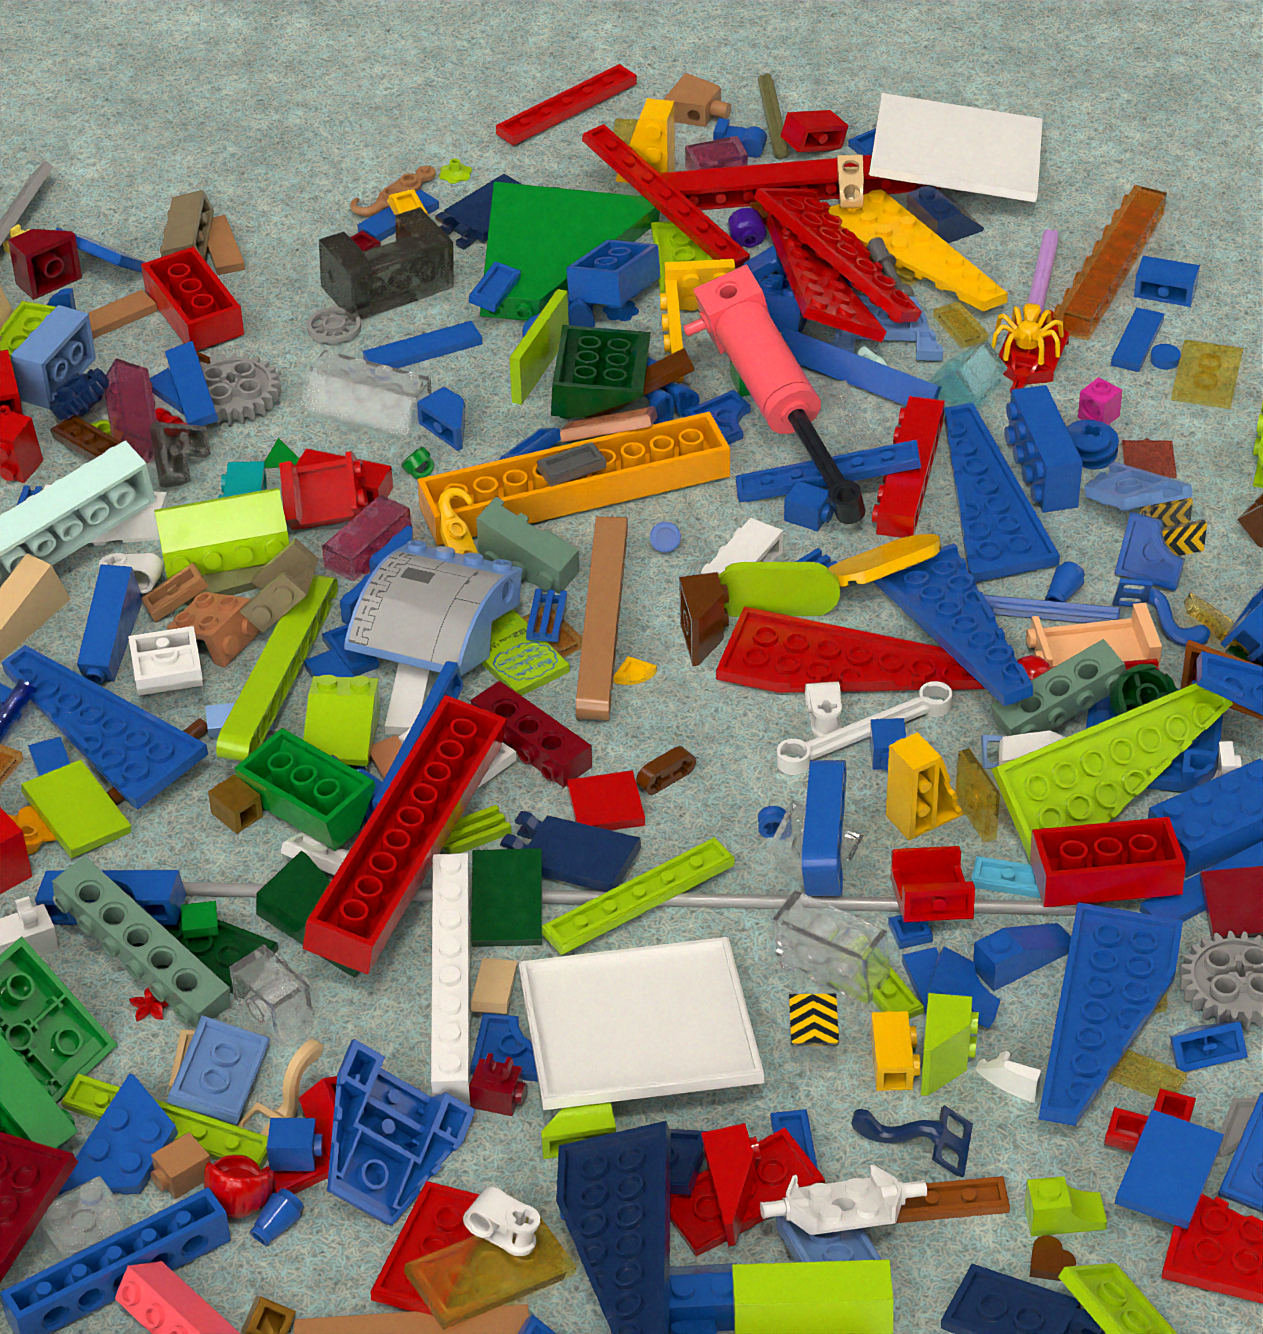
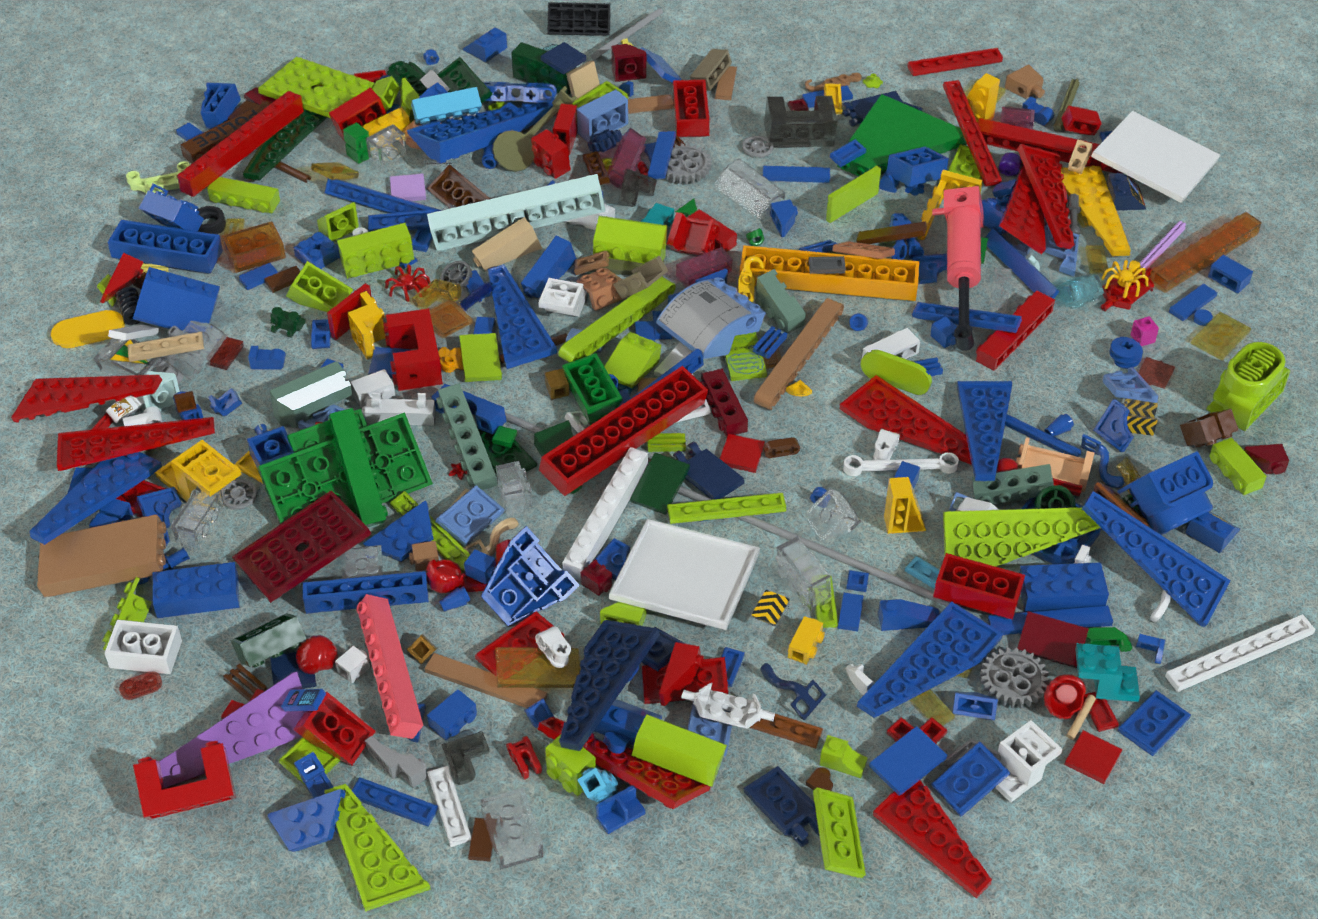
camera: 25 degrees right, 5 degrees up
(146, 567) = (580, 244): white piece -> none
(494, 986) = (627, 526): tan tile -> none
(598, 370) = (874, 217): dark green slope -> none
(702, 613) = (849, 371): reddish brown slope -> none
(824, 828) = (834, 508): blue beam -> none
(886, 559) = (967, 376): yellow tile -> none
(931, 884) = (880, 561): red panel -> none
(947, 1040) = (832, 646): lime slope -> none
(957, 976) = (861, 622): blue tile -> none
(977, 795) = (932, 523): clear yellow tile -> none
(995, 515) = (1047, 371): blue wing -> none
(1043, 449) = (1092, 346): blue brick -> none

